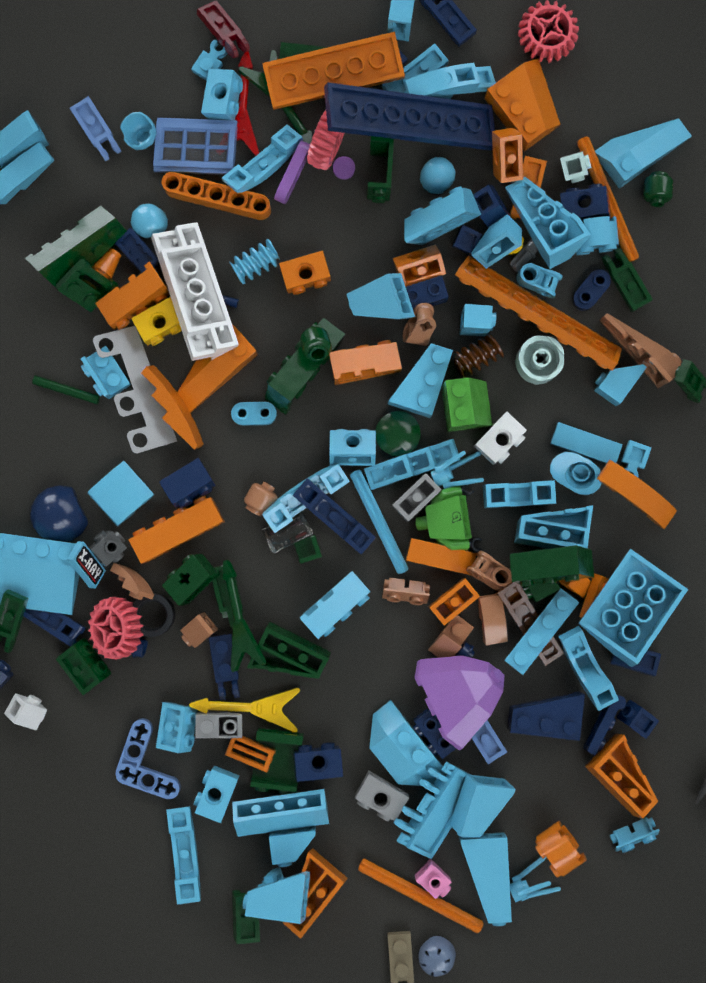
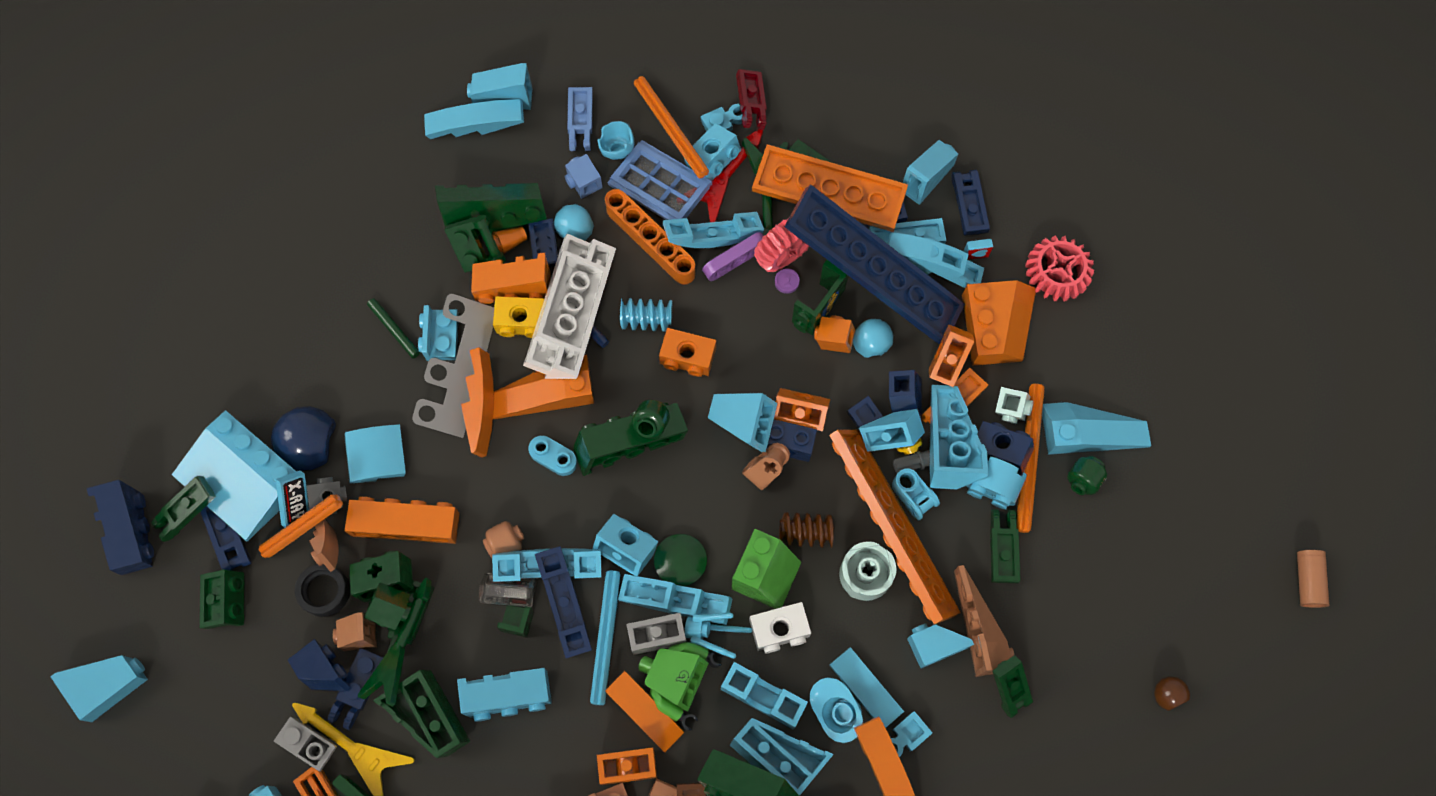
camera: 35 degrees right, 15 degrees down
(26, 711) = (134, 608): white brick -> none
(40, 778) = (99, 685): none -> medium azure slope
(108, 577) = (300, 526): none -> orange axle
(115, 628) = (276, 578): coral gear -> none
(131, 177) = (583, 176): none -> medium blue brick
(134, 764) = (198, 734): medium blue beam -> none
(141, 649) = (286, 614): dark blue plate -> none
(175, 93) = (671, 127): none -> orange axle
(176, 728) = (264, 721): medium azure bracket -> none
(187, 484) = (443, 482): dark blue brick -> none
(190, 671) = (317, 668): none -> dark blue slope
(213, 598) = (388, 606): none -> dark green brick
(365, 362) = (689, 469): orange wedge -> none
(408, 190) = (835, 334): none -> orange brick
(416, 593) = (594, 735): nougat hinge -> none
(423, 383) = (731, 526): medium azure wedge -> none
(440, 216) = (850, 375): medium azure slope -> none
(477, 52) = (978, 248): none -> medium azure tile
(477, 320) = (826, 493): medium azure brick -> none
(489, 570) = (683, 757): nougat piece -> none
(591, 289) = (963, 535): dark blue plate -> none

